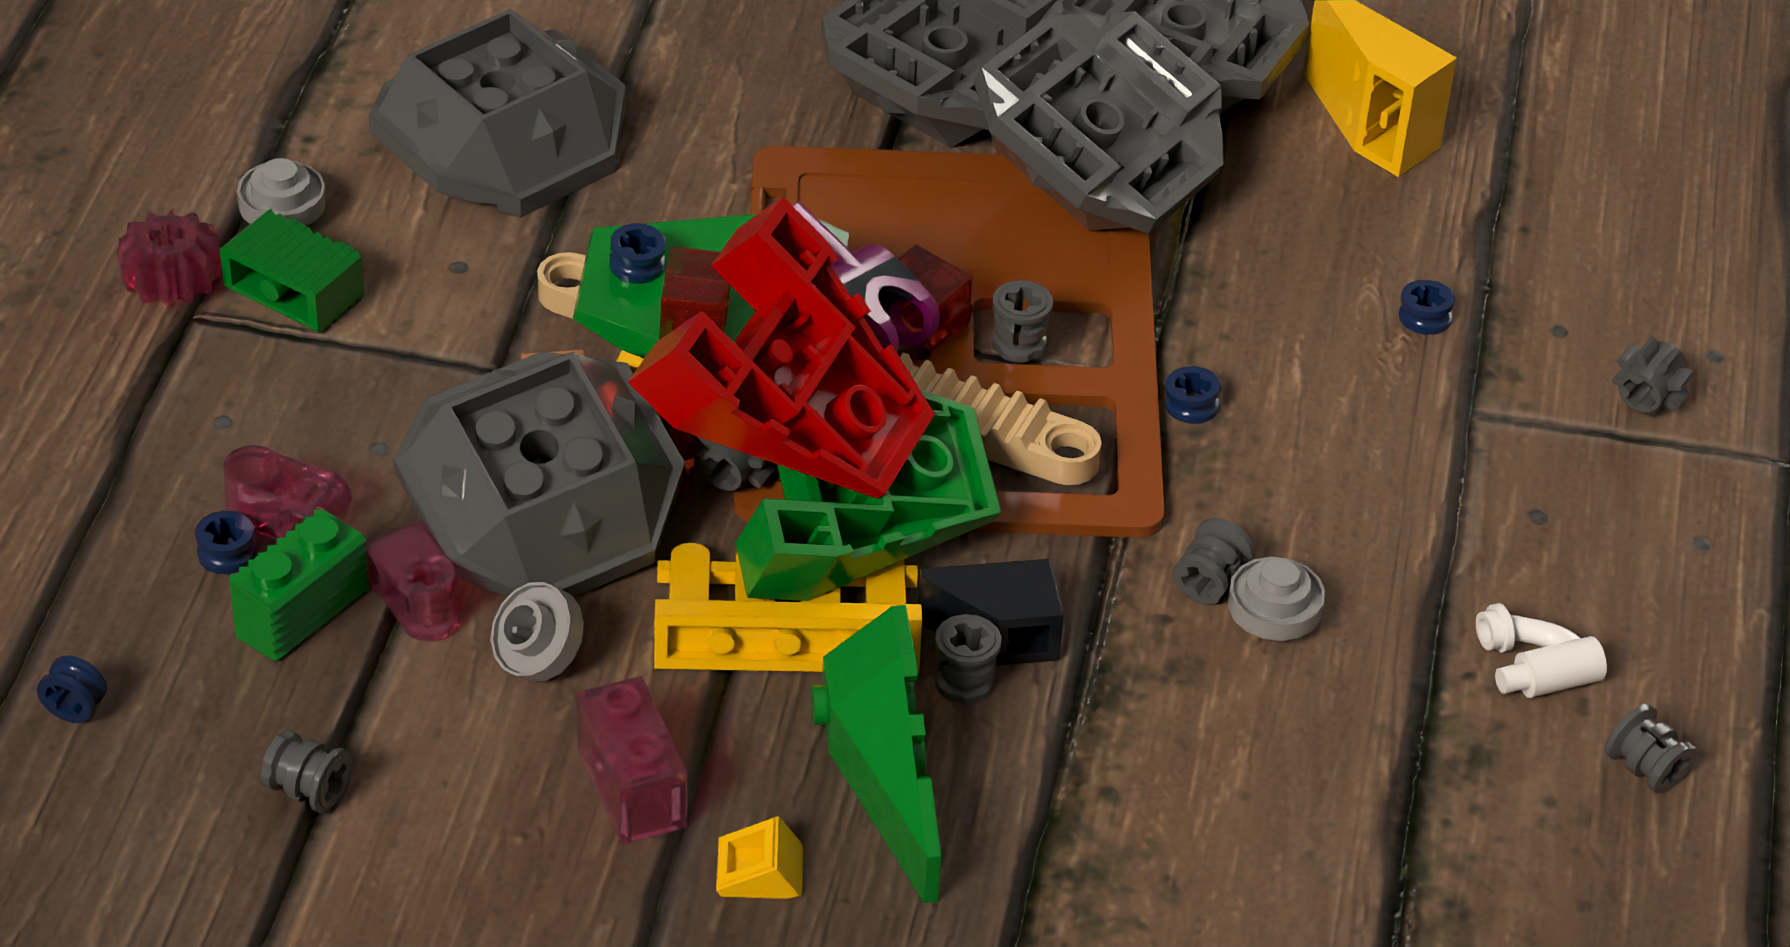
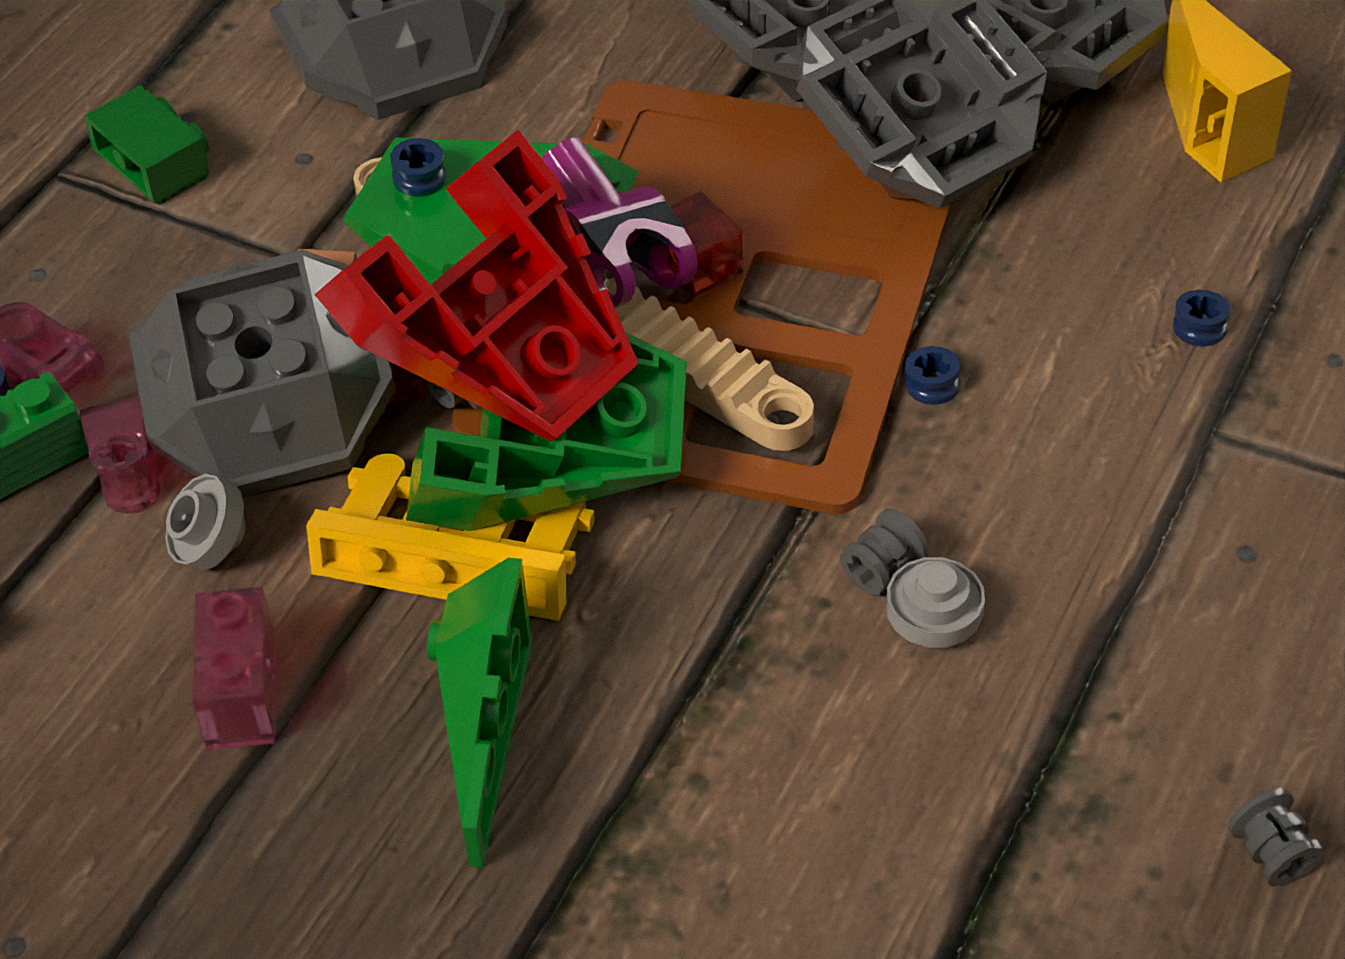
camera: 20 degrees right, 5 degrees up
(169, 257) = (47, 118): clear pink gear -> none
(285, 188) = (172, 71): light grey plate -> none
(691, 288) = (436, 224): clear red brick -> none
(760, 862) = (325, 795): yellow slope -> none
(966, 658) = (599, 615): dark grey bush -> none
(1013, 595) = (649, 568): black slope -> none
(1030, 323) = (777, 276): dark grey bush -> none
(1559, 665) = (1214, 724): white plant -> none

